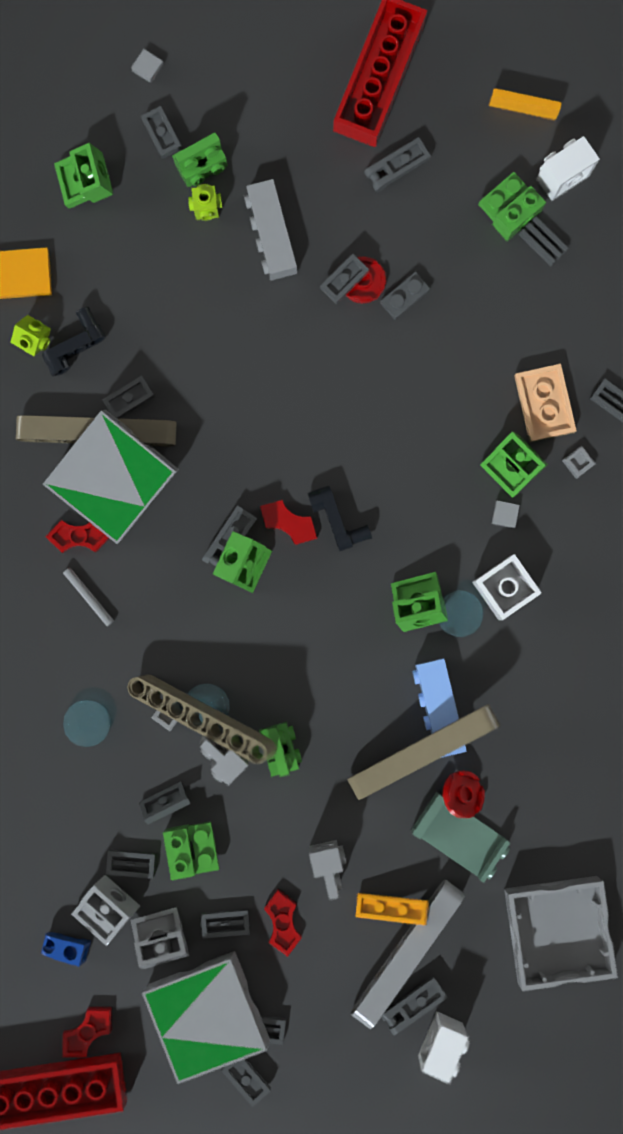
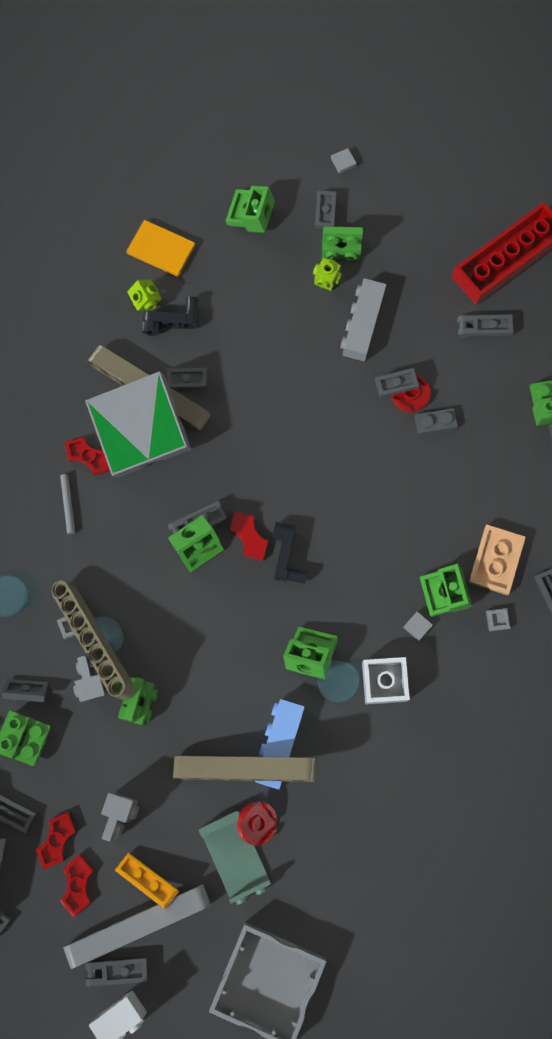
camera: 30 degrees right, 10 degrees down
(333, 960) = (76, 895): none -> red tile

